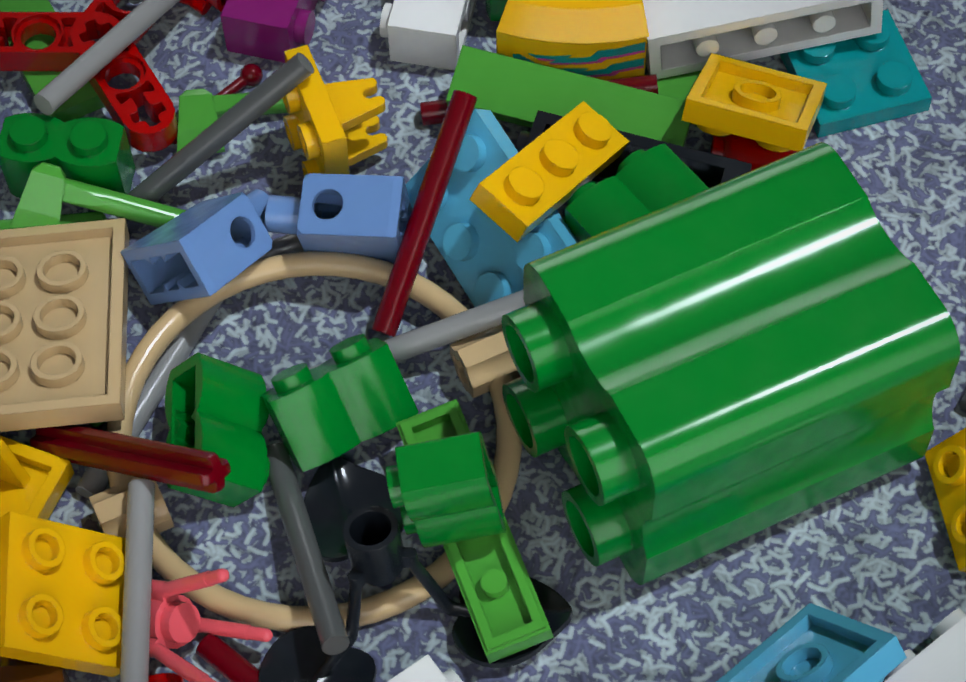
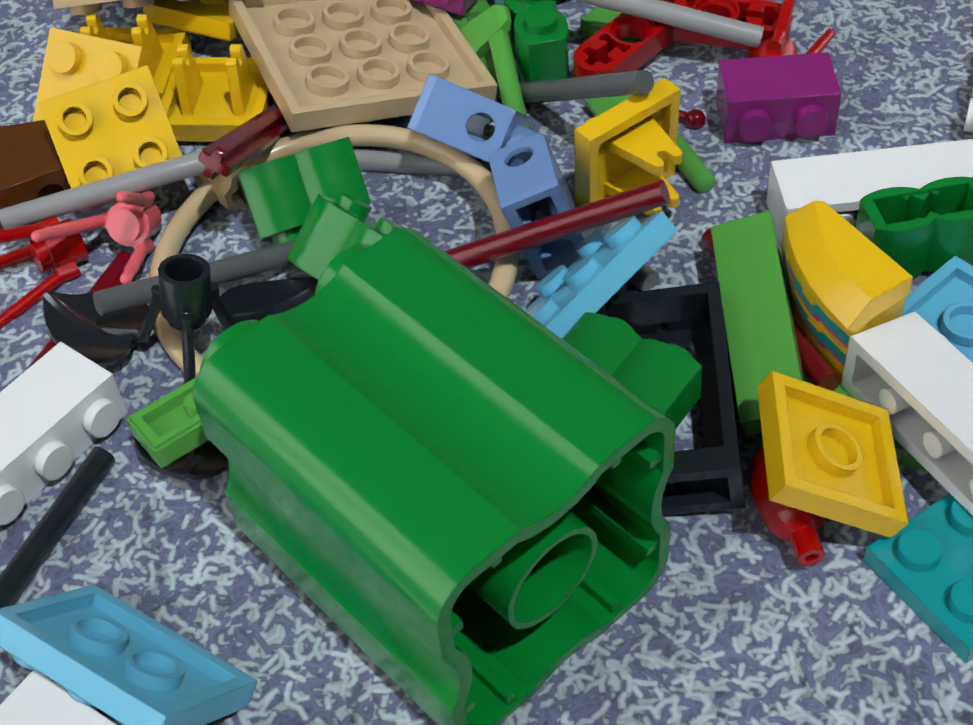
camera: 75 degrees right, 10 degrees down
(446, 490) = (226, 284): green brick -> none
(549, 171) = (624, 286): yellow plate -> none

